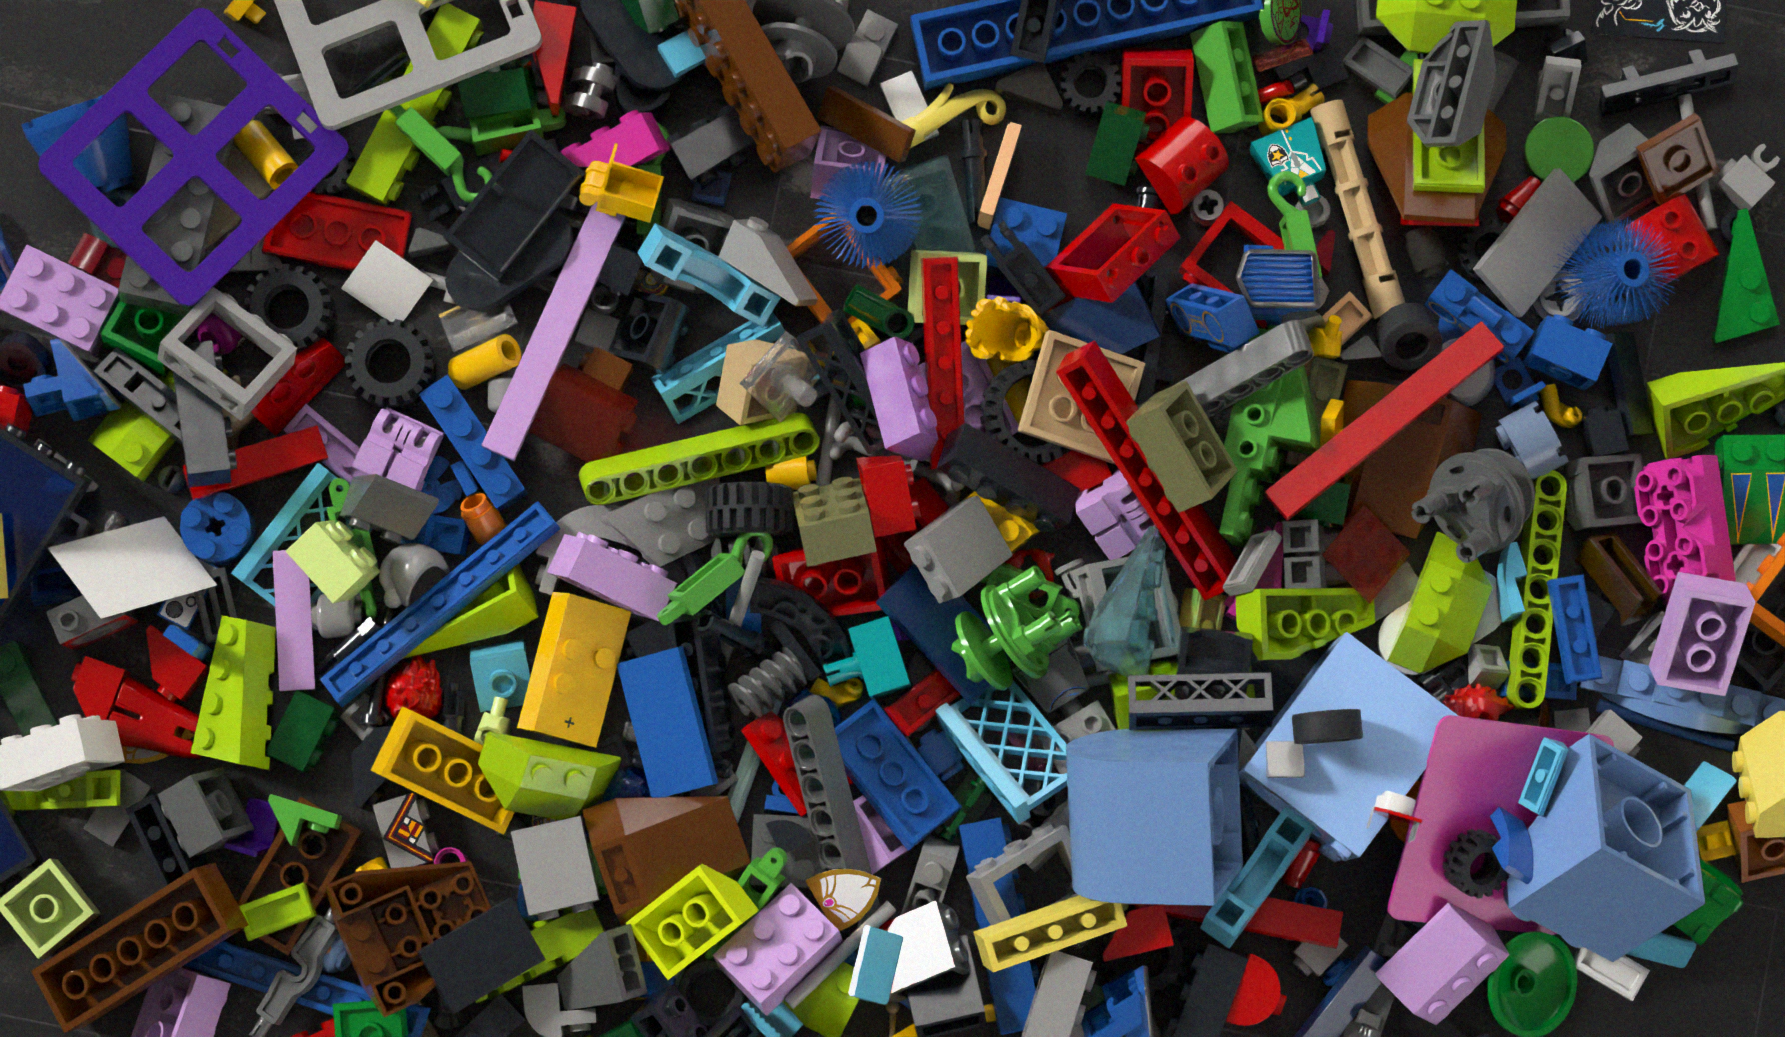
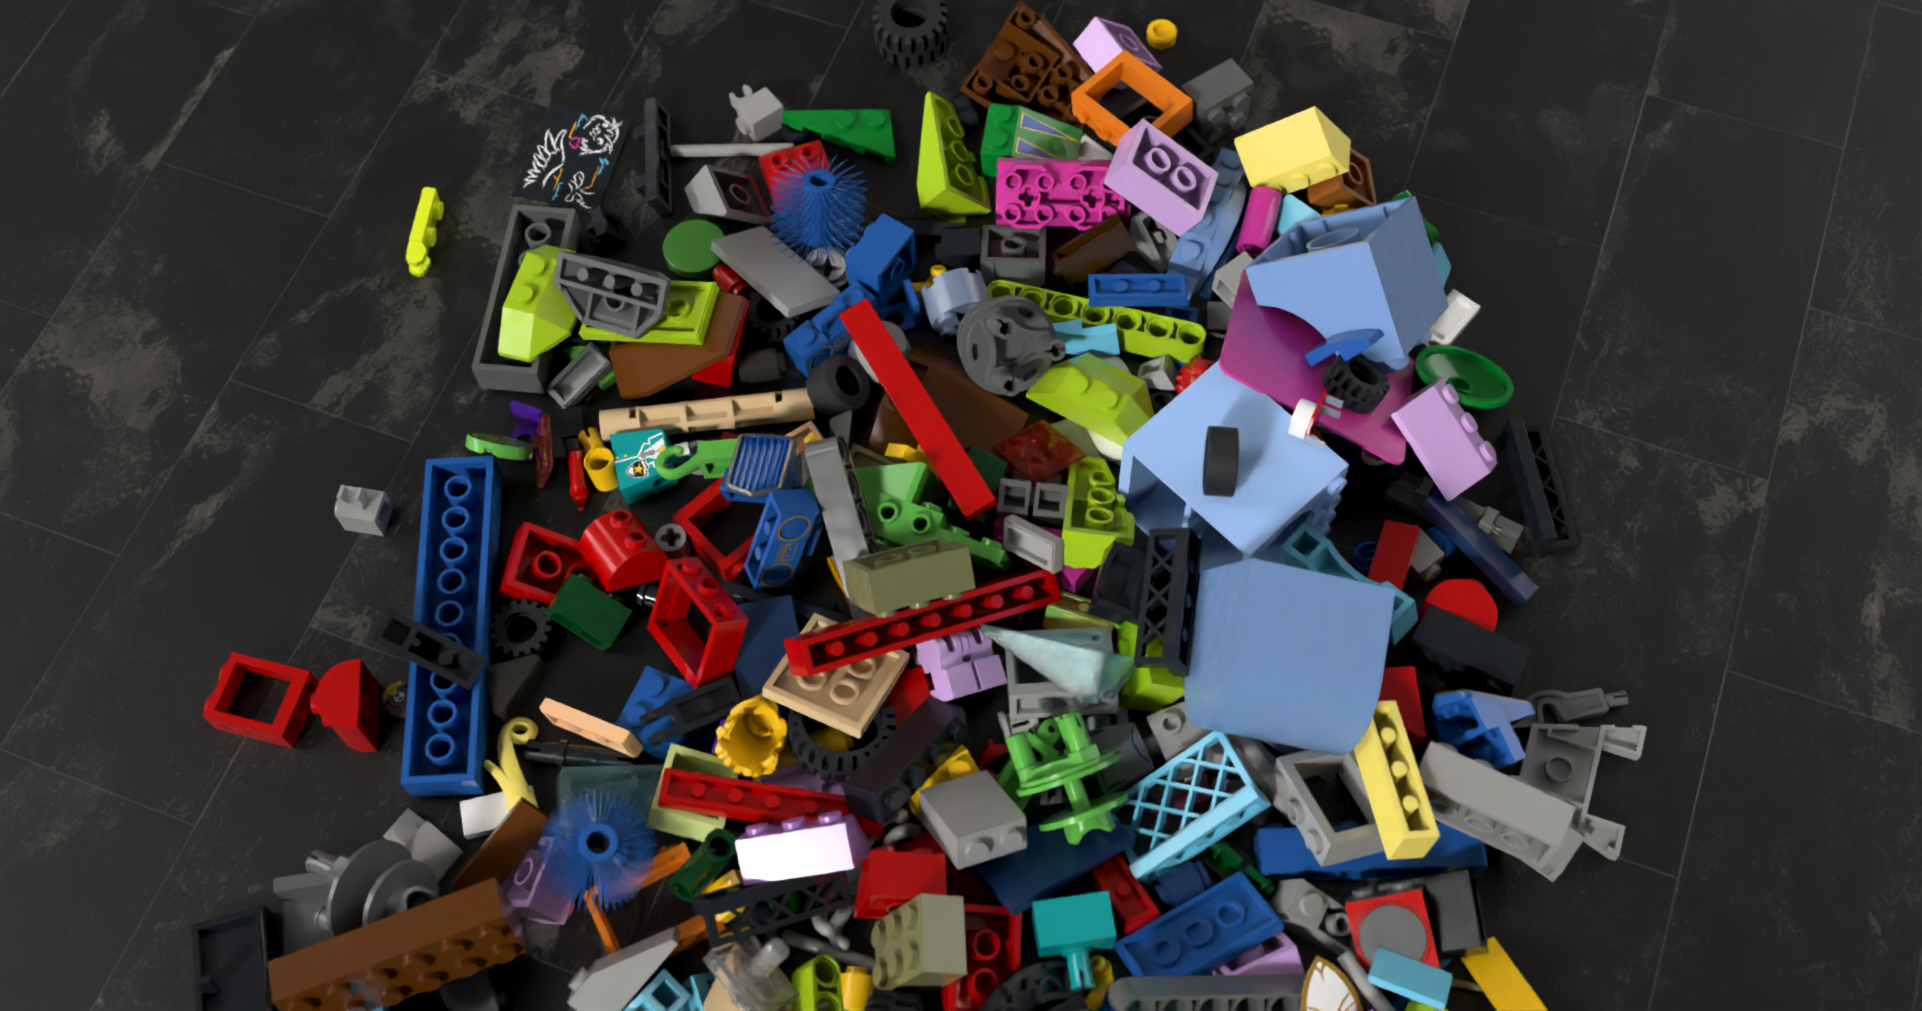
camera: 75 degrees left, 20 degrees down
(1226, 77) = (550, 503): bright green brick -> none
(1284, 760) = (1246, 513): light grey slope -> none
(1543, 775) = (1279, 312): medium azure slope -> none
(1556, 87) = (639, 239): light grey slope -> none
(1677, 159) = (726, 151): reddish brown tile -> none
(1694, 751) = (1259, 221): none -> dark pink pin

